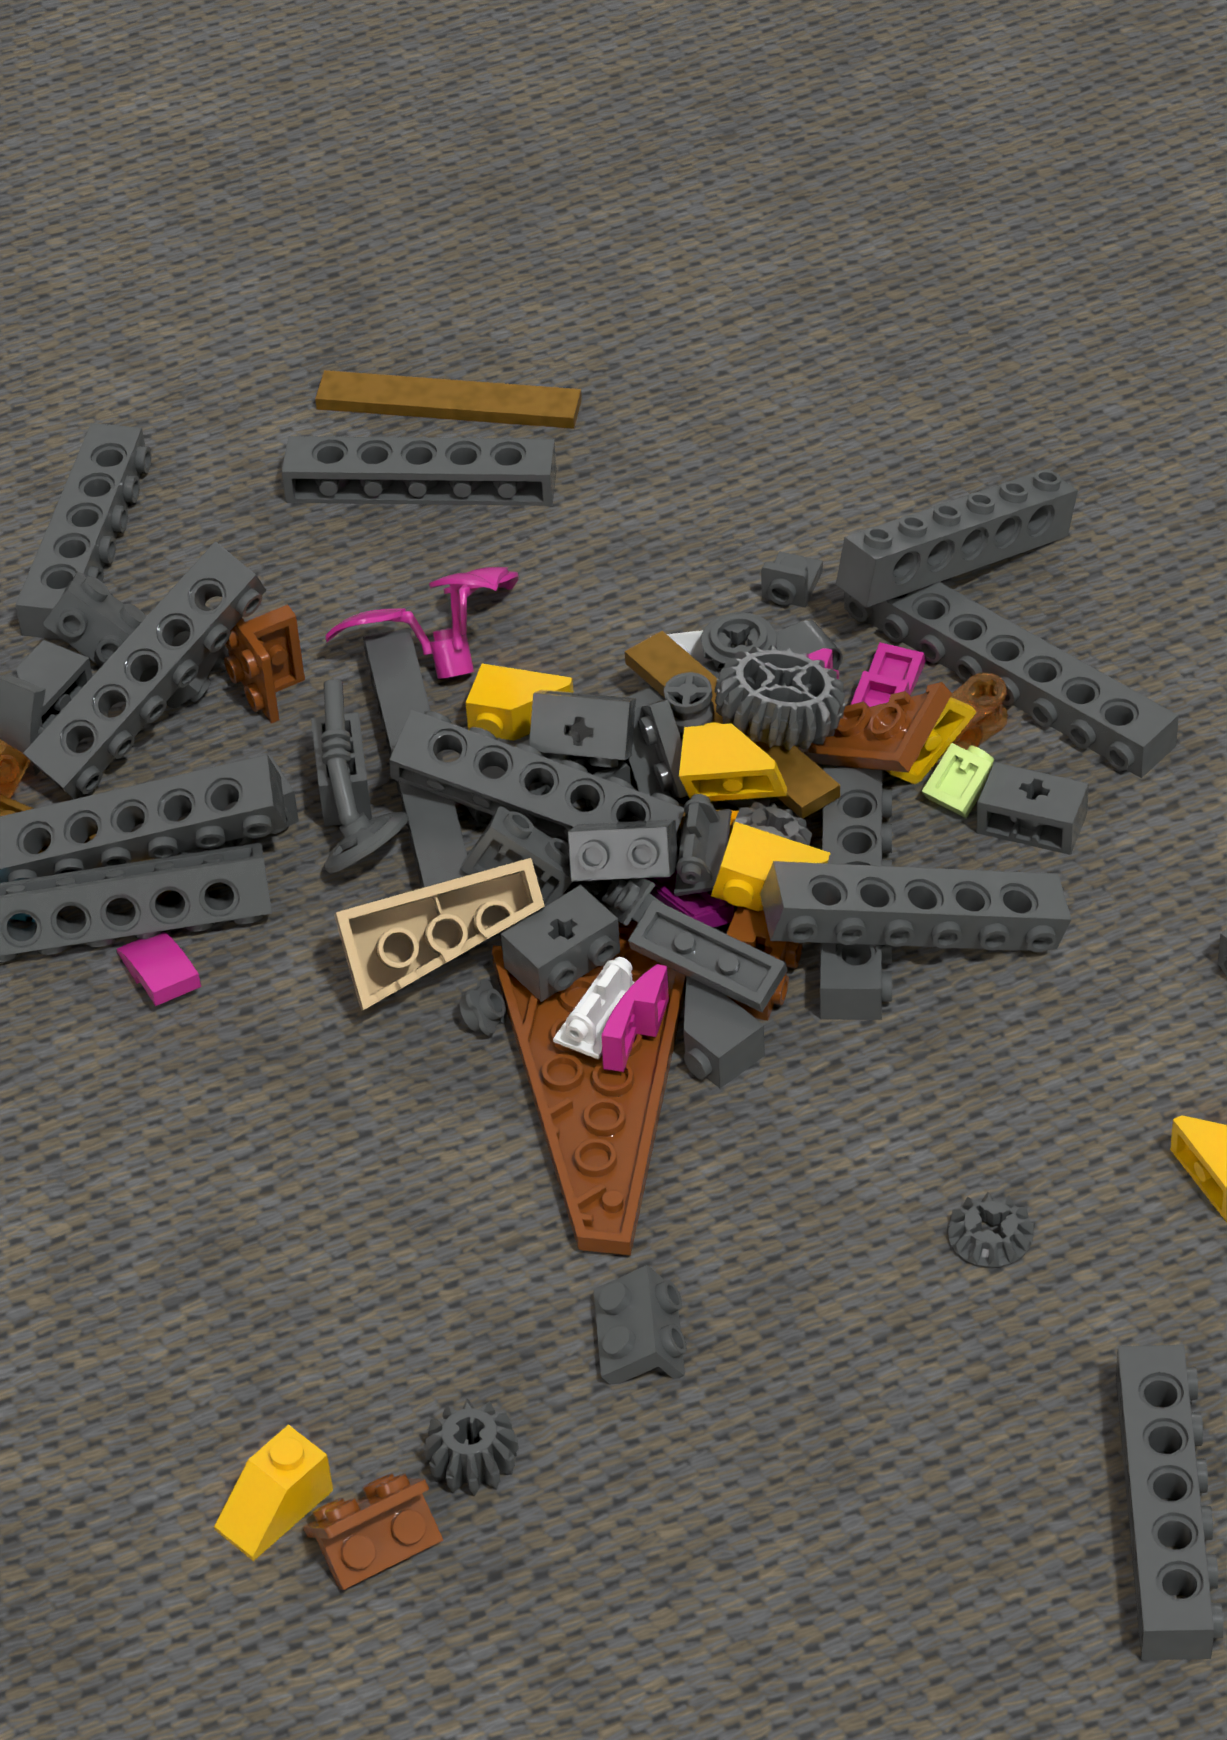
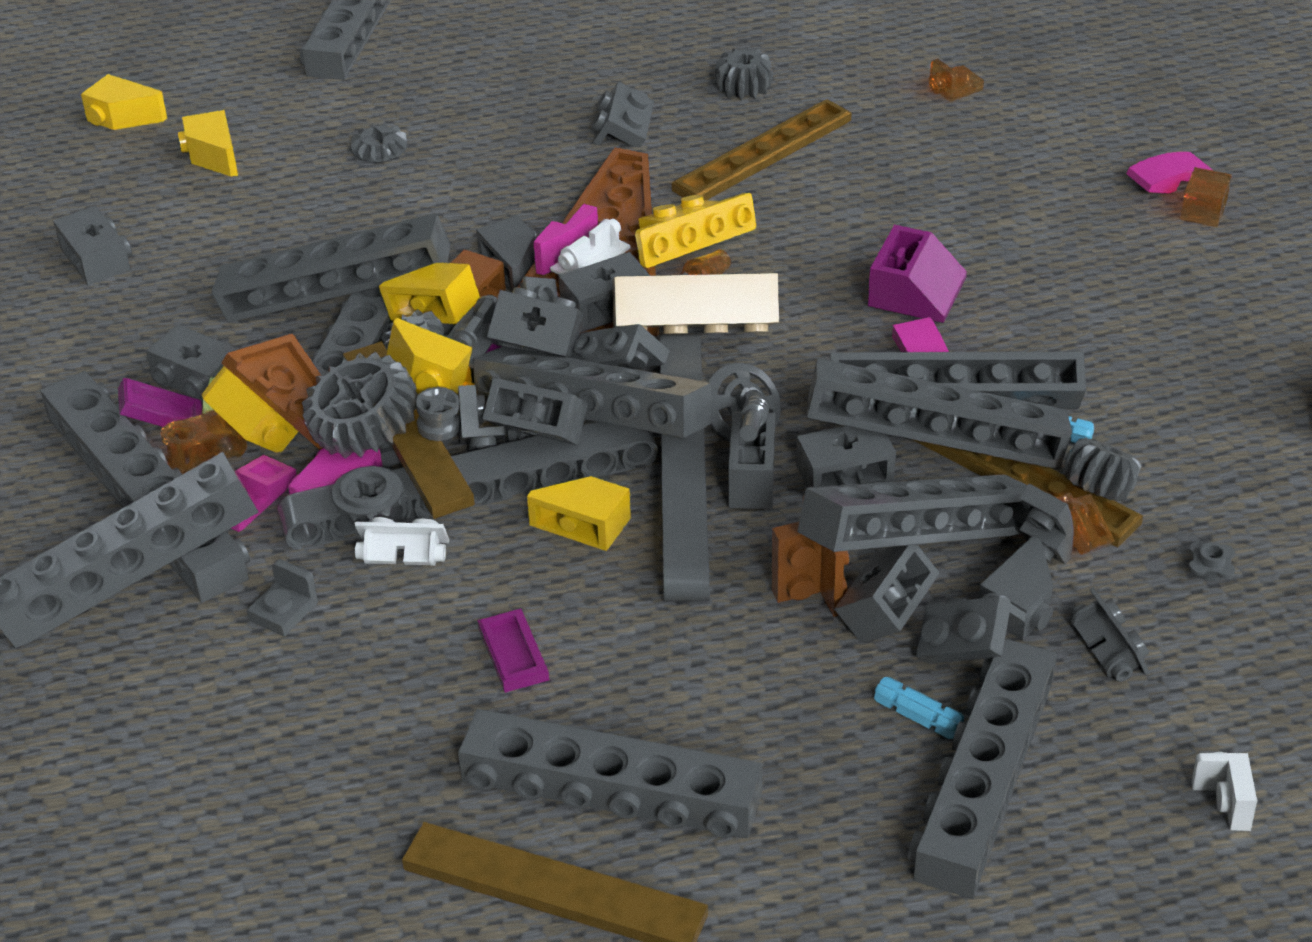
camera: 170 degrees left, 5 degrees down
(136, 1496) = (953, 82): none -> clear orange bracket
(140, 579) = (918, 707): none -> medium azure axle
(178, 1063) = (915, 275): none -> magenta slope
(274, 1492) = (861, 67): yellow slope -> none
(374, 1530) = (812, 41): dark orange bracket -> none
(413, 1307) = (762, 151): none -> pearl gold tile
(450, 645) = (698, 572): dark pink plant -> none
(452, 1049) = (709, 264): none -> clear orange cone
(491, 1097) = (692, 226): none -> yellow bracket
(547, 576) = (513, 650): none -> magenta tile
(707, 955) = (500, 251): dark grey plate -> none
(1037, 732) = (155, 404): none -> magenta tile

